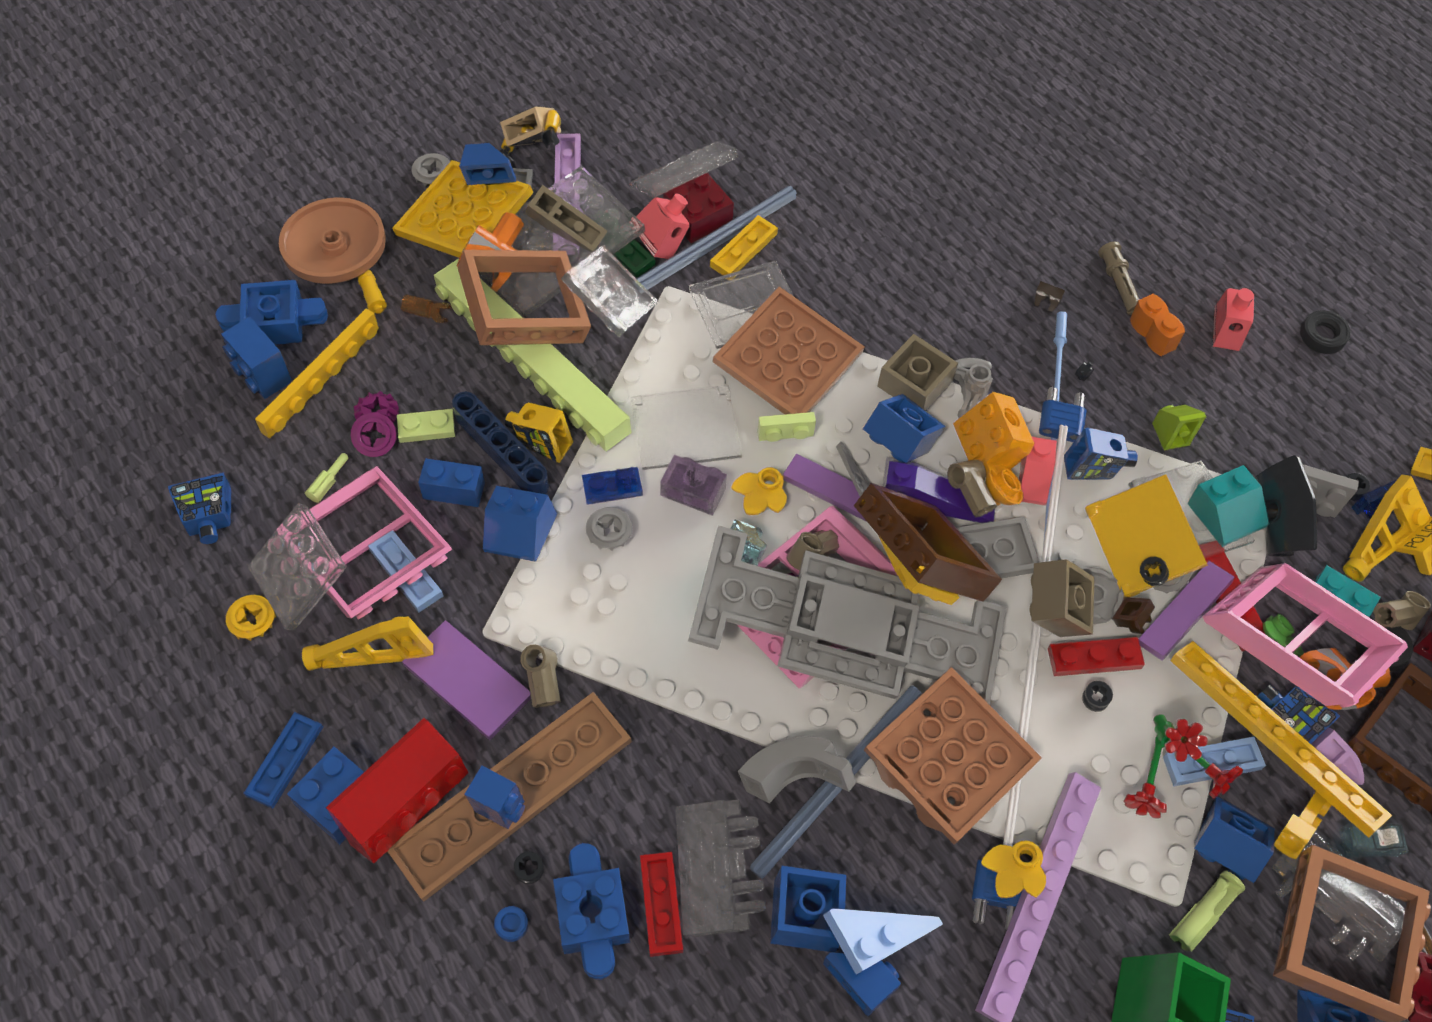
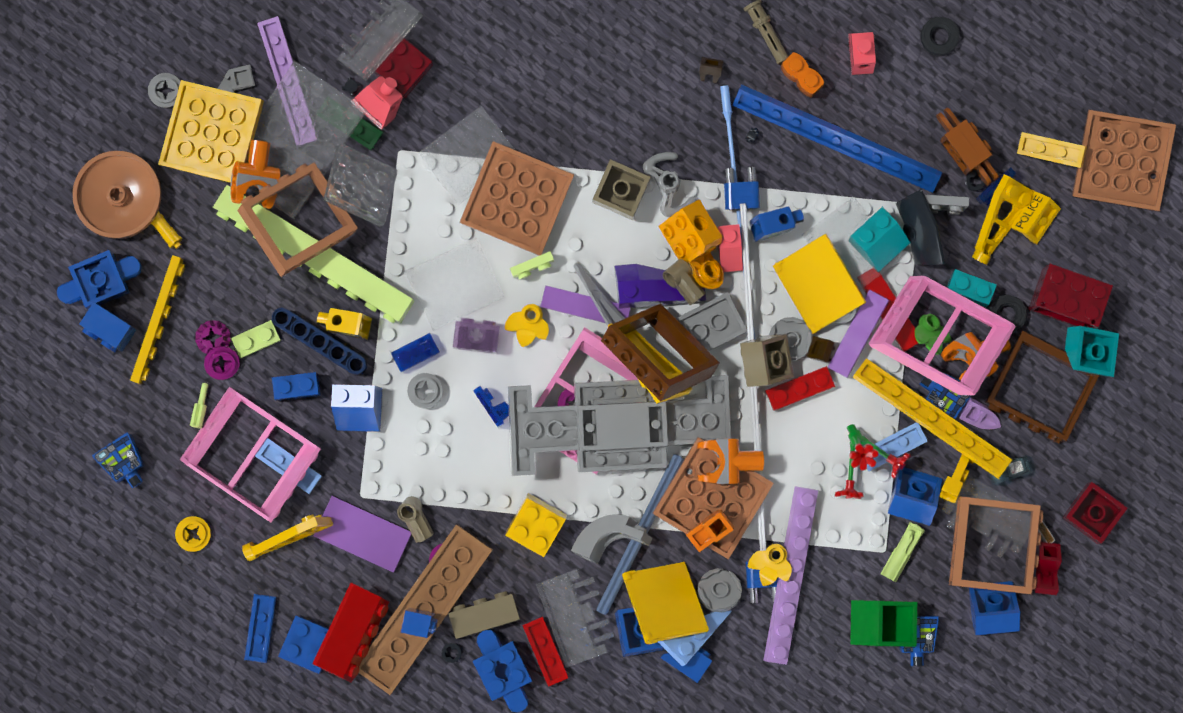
camera: 15 degrees left, 25 degrees up
(296, 567) = (214, 492): clear plate -> none
(423, 307) = (215, 233): clear orange bar -> none
(485, 165) = (216, 90): blue slope -> none
(511, 923) = (452, 691): blue tile -> none
(530, 128) = (238, 30): torso -> none
(564, 219) = (301, 127): dark tan slope -> none
(603, 826) = (483, 614): none -> dark tan brick
(690, 575) = (497, 413): none -> clear blue hinge
(700, 724) = (536, 525): none -> yellow brick
(716, 238) = (425, 89): sand blue axle -> none
(744, 246) = (450, 94): yellow plate -> none
(754, 546) = (527, 374): clear light blue leg -> none
(820, 542) = (579, 368): dark tan piece -> none
(852, 877) = (665, 602): none -> yellow piece
(903, 428) = (621, 246): blue brick -> none
(932, 889) = (719, 590): none -> light grey tile
(945, 786) = (710, 530): none -> orange brick
(988, 704) = (730, 461): none -> orange connector
(1104, 689) = (799, 420): black bush -> none
(1155, 580) = (836, 312): black bush -> none
(1177, 425) = (830, 169): lime slope -> none
(1180, 392) = (837, 138): none -> blue plate
(1353, 439) = (966, 146): none -> dark orange brick
(1403, 612) = (1014, 289): dark tan piece -> none

